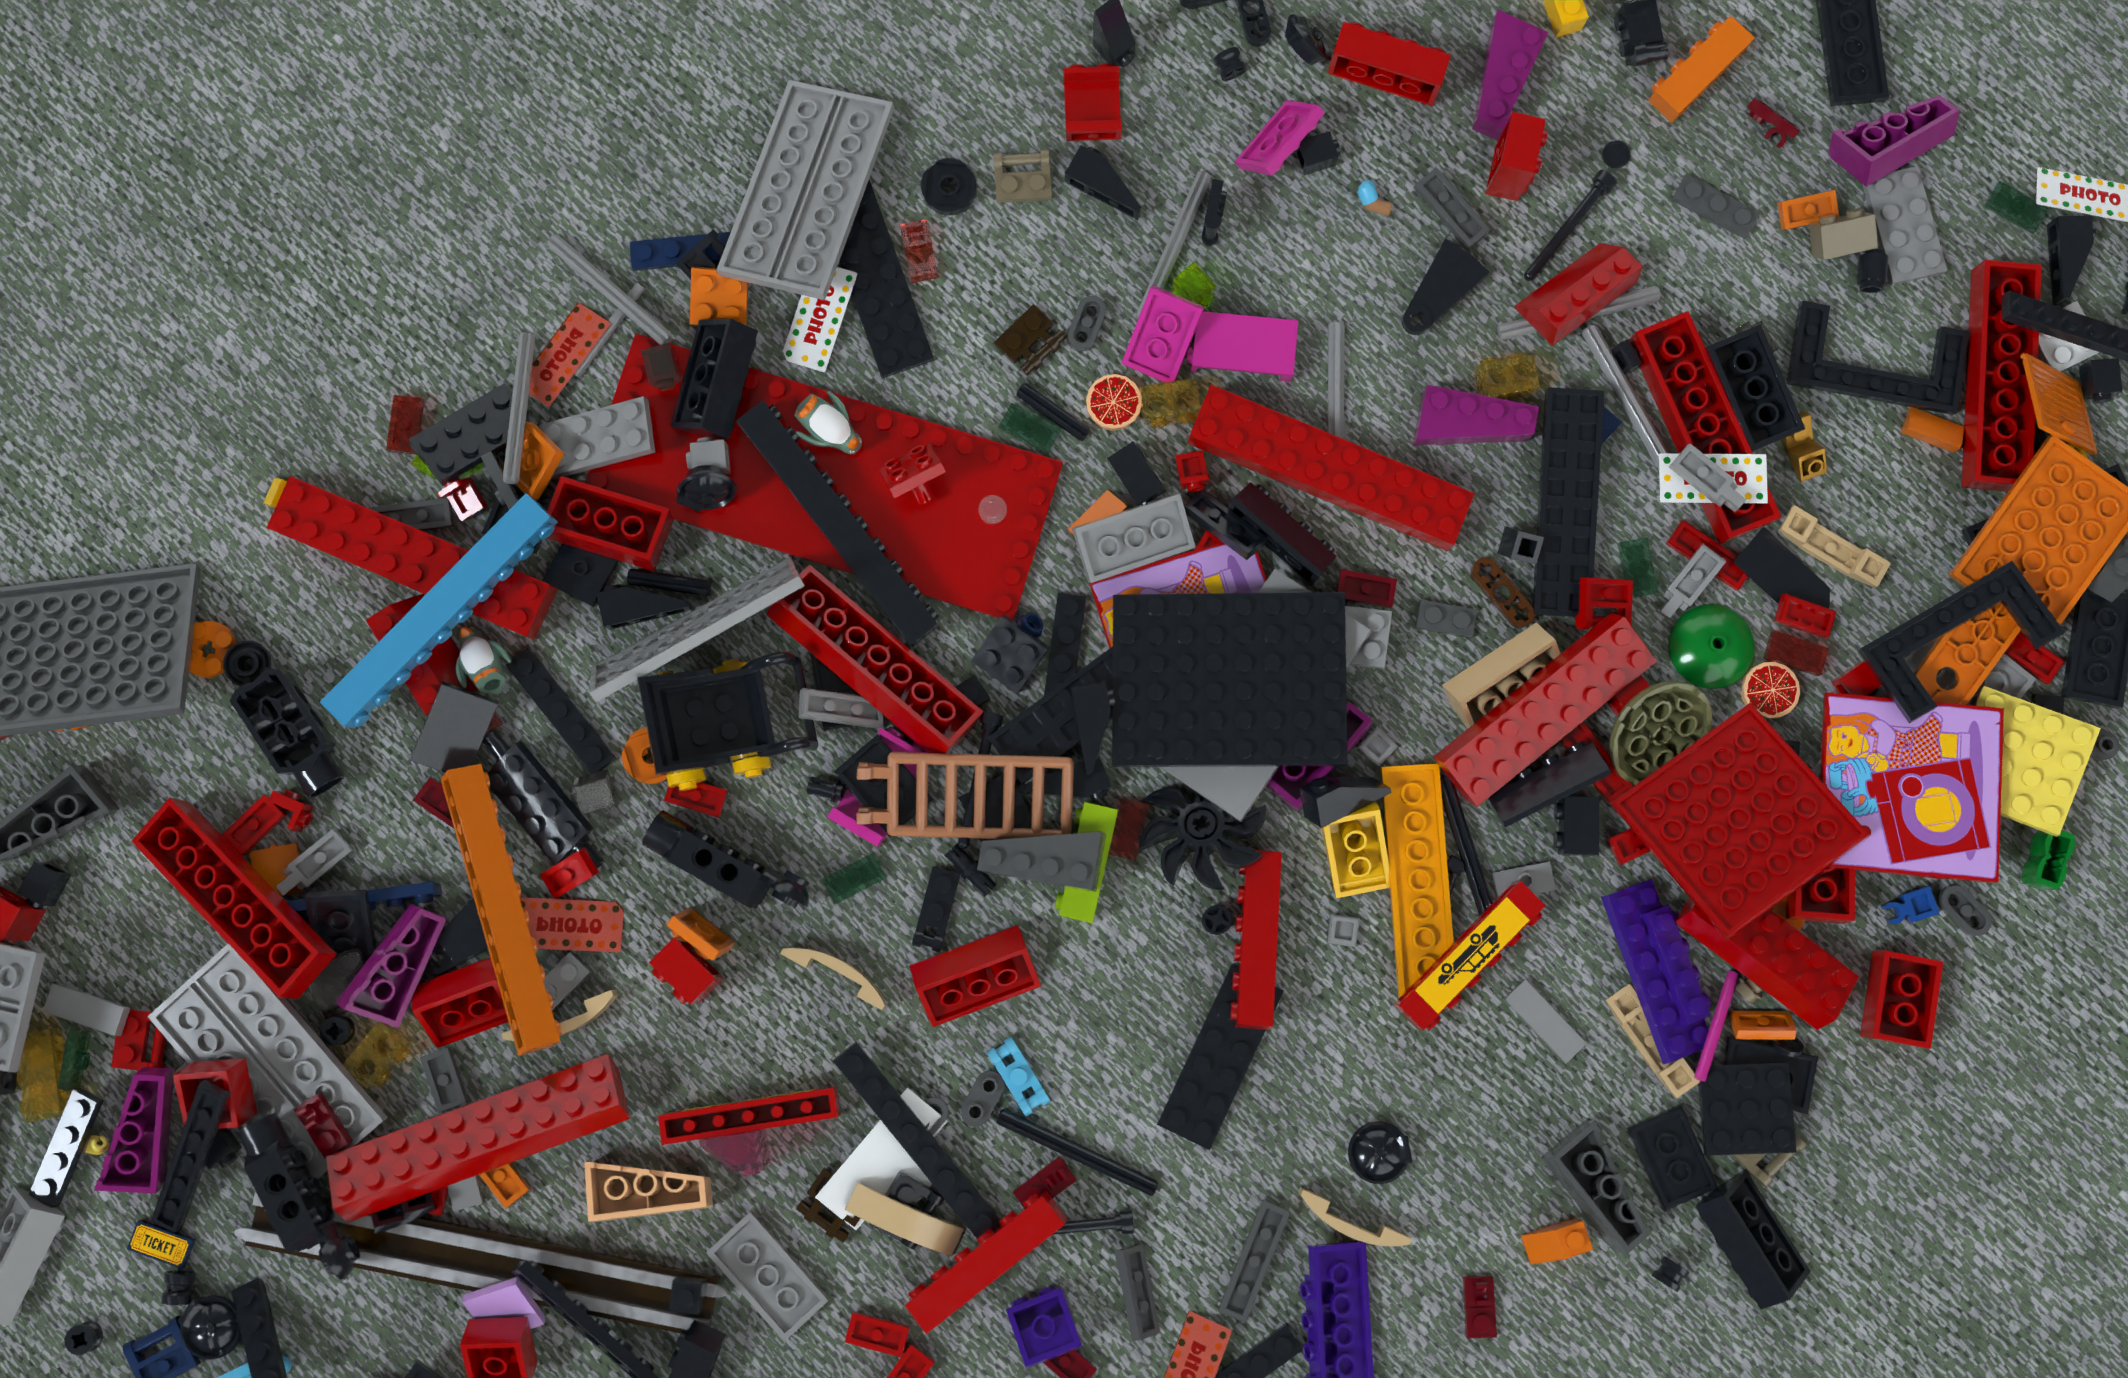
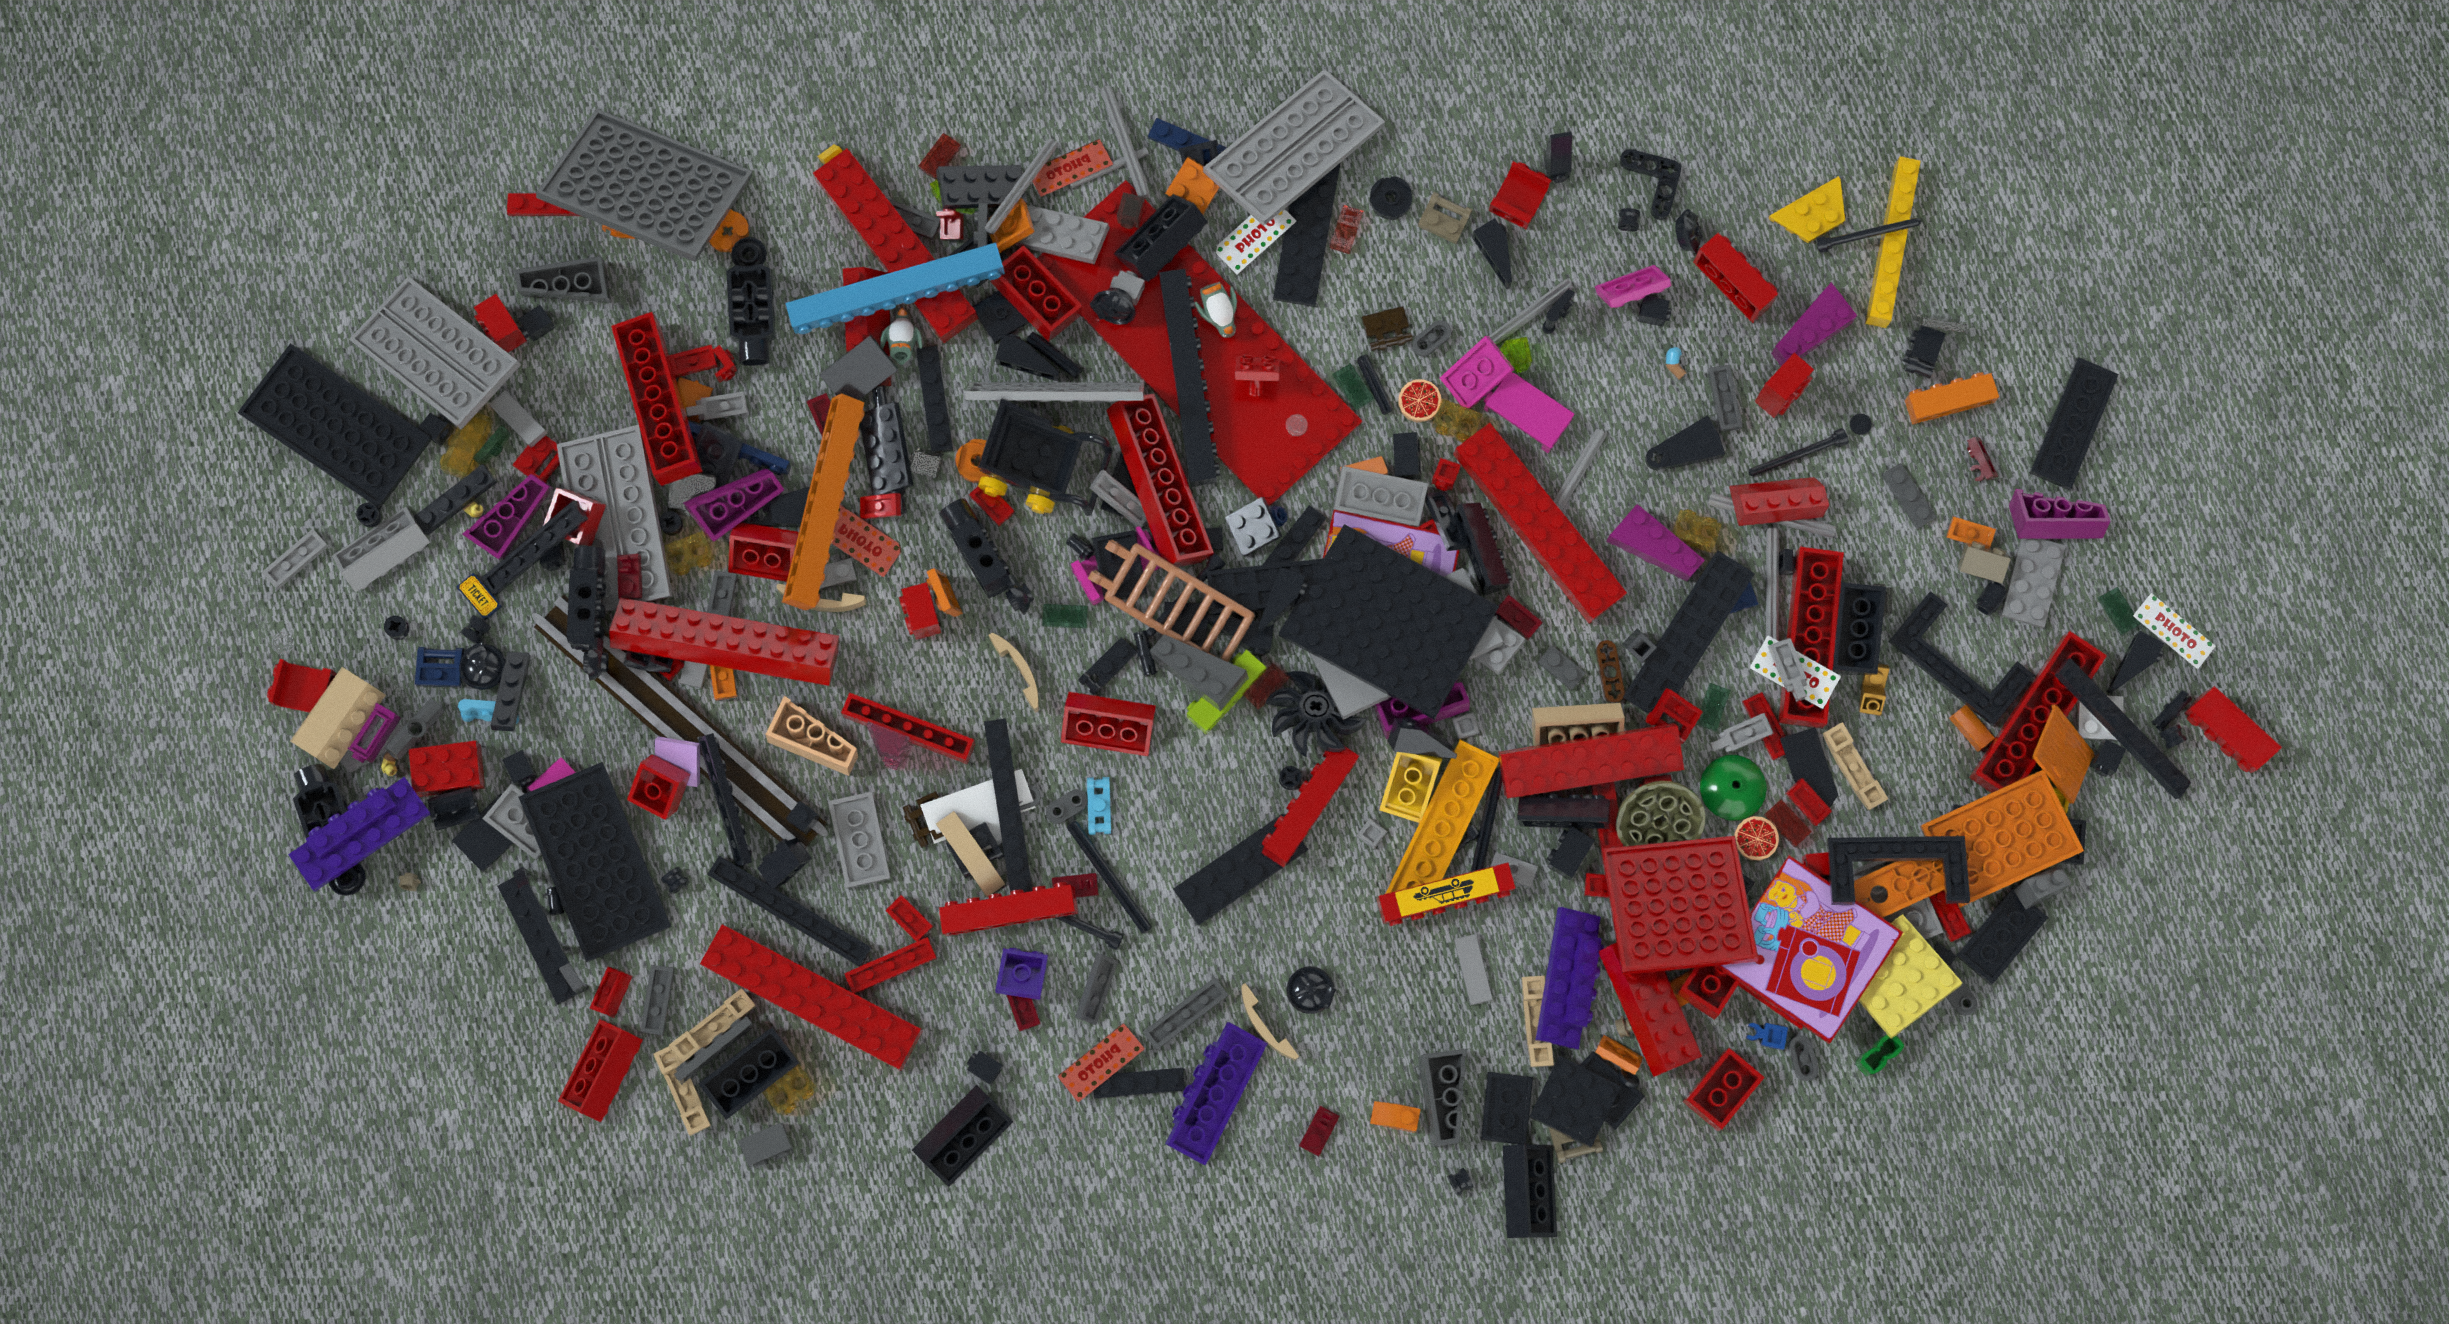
camera: 25 degrees right, 5 degrees down
(1716, 1026) = (1586, 1036): dark pink bar -> none

